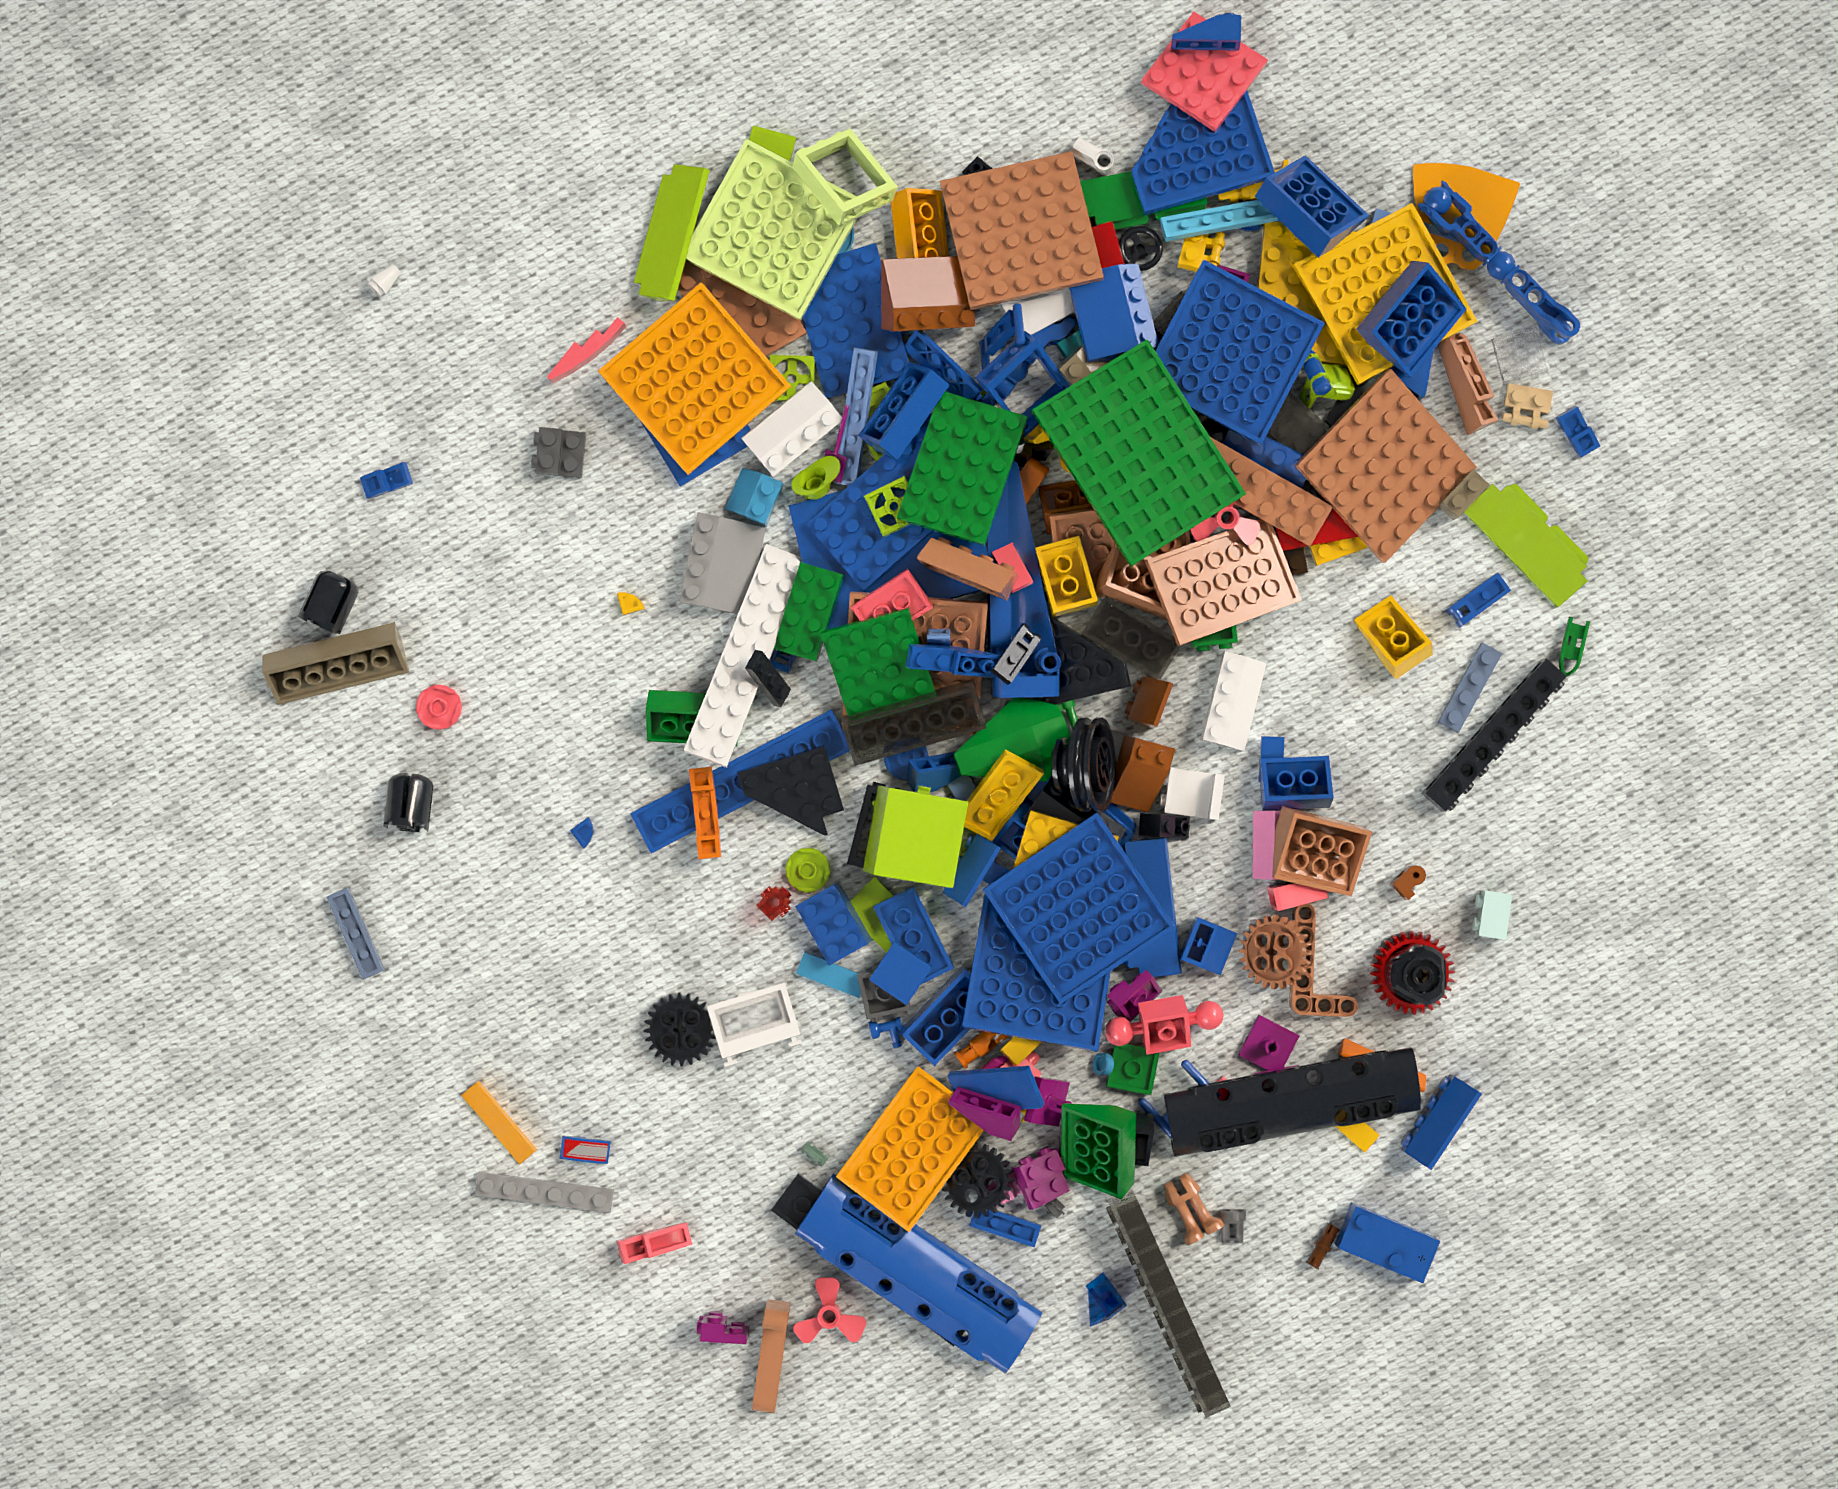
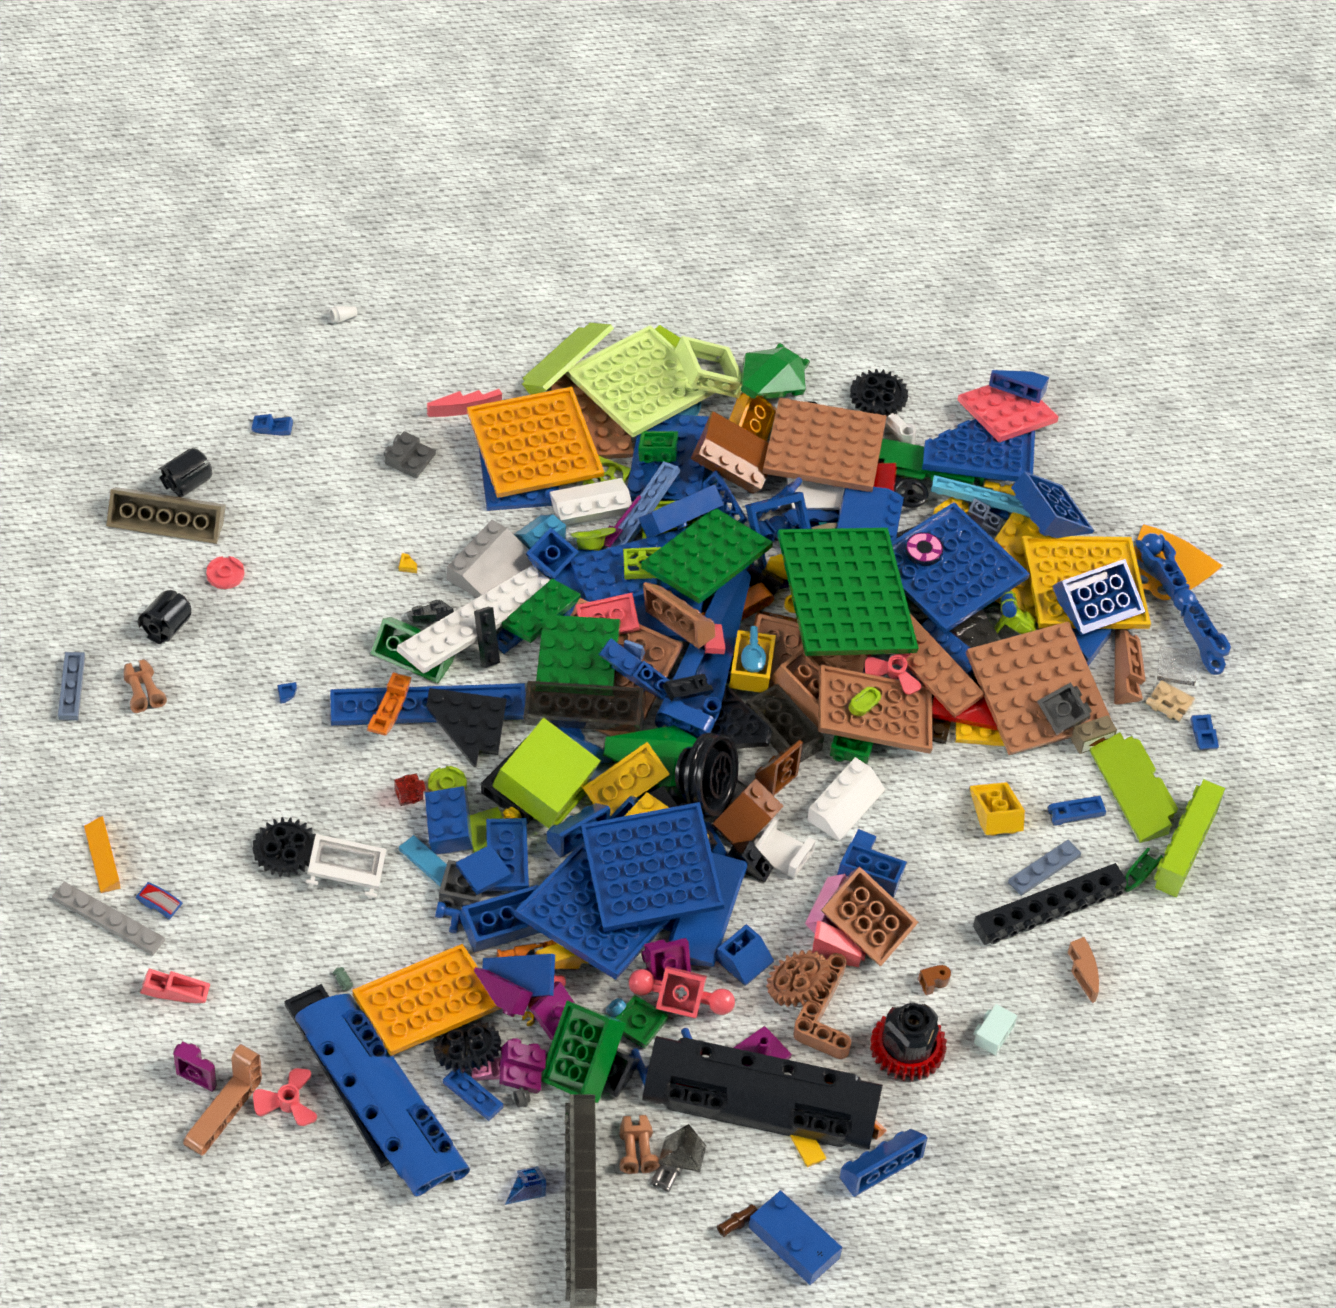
camera: 20 degrees right, 35 degrees down
(448, 907) = (139, 701): none -> nougat piece
(689, 663) = (434, 612): none -> black plate
(785, 527) = (551, 553): none -> blue slope
(835, 321) = (658, 446): none -> green plate
(895, 884) = (511, 813): none -> yellow plate
(917, 148) = (773, 373): none -> green windscreen
(1052, 132) = (879, 393): none -> black gear
(1067, 576) = (753, 655): none -> dark azure piece
(1197, 346) = (924, 549): none -> tile
(1211, 583) = (864, 701): none -> lime tile
(1237, 244) = (984, 518): none -> sand blue slope
(1240, 1199) = (683, 1150): none -> clear smoke slope
(1427, 488) = (1064, 708): none -> dark grey plate
(1557, 798) = (1084, 967): none -> nougat slope
(1613, 589) = (1188, 837): none -> lime brick

